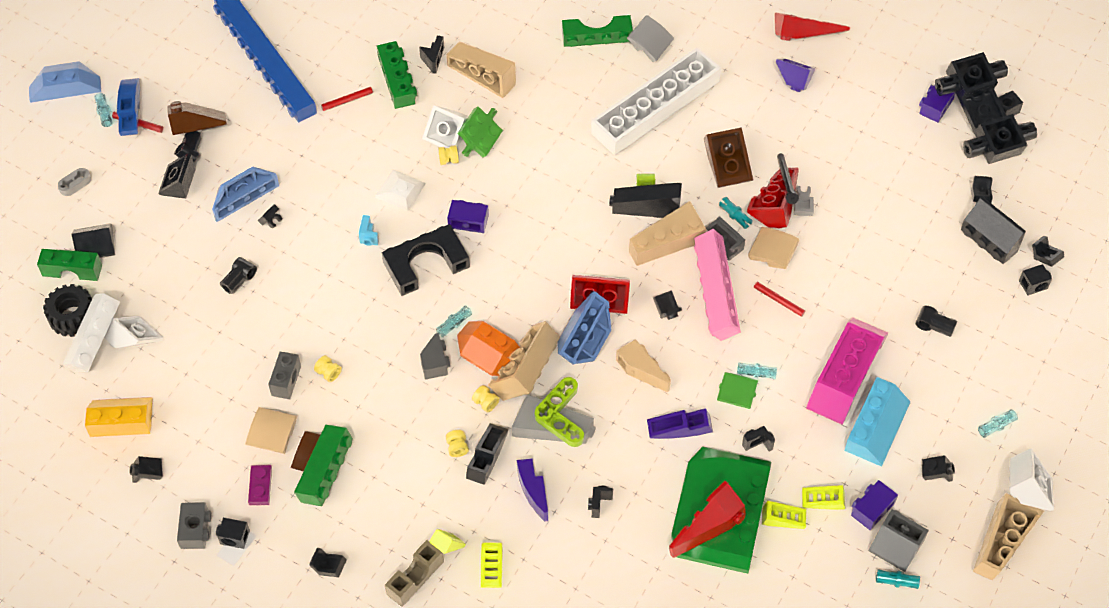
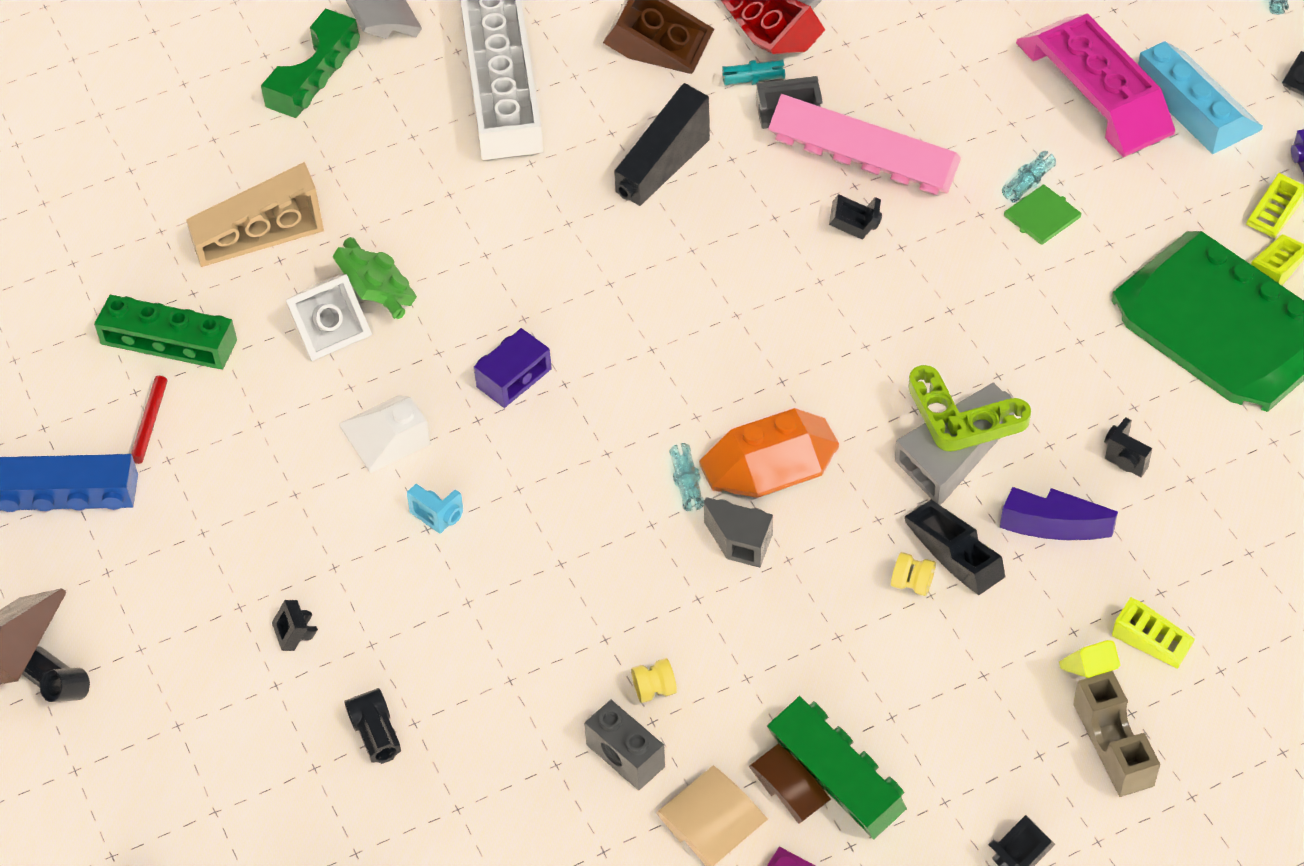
camera: 55 degrees left, 5 degrees down
(178, 177) = (98, 722): black slope -> none
(242, 191) = (210, 640): medium blue wedge -> none
(433, 55) = (172, 269): black slope -> none
(440, 241) = (534, 420): black arch -> none
(448, 155) = (376, 341): light yellow wheel -> none
(485, 398) = (858, 501): light yellow wheel -> none
(526, 362) = (848, 420): tan wedge -> none
(586, 331) = (827, 322): medium blue wedge -> none
(613, 290) = (785, 274): red slope -> none
(638, 364) = (930, 293): tan slope -> none
(645, 179) = (622, 138): lime brick -> none
(667, 235) = (739, 152): tan wedge -> none
(680, 425) = (1062, 297): dark purple slope -> none
(718, 516) = (1256, 314): red wedge -> none
(756, 437) = (1144, 219): black bracket -> none
(773, 247) = (843, 62): tan slope -> none
(778, 298) = (928, 98): bar -> none

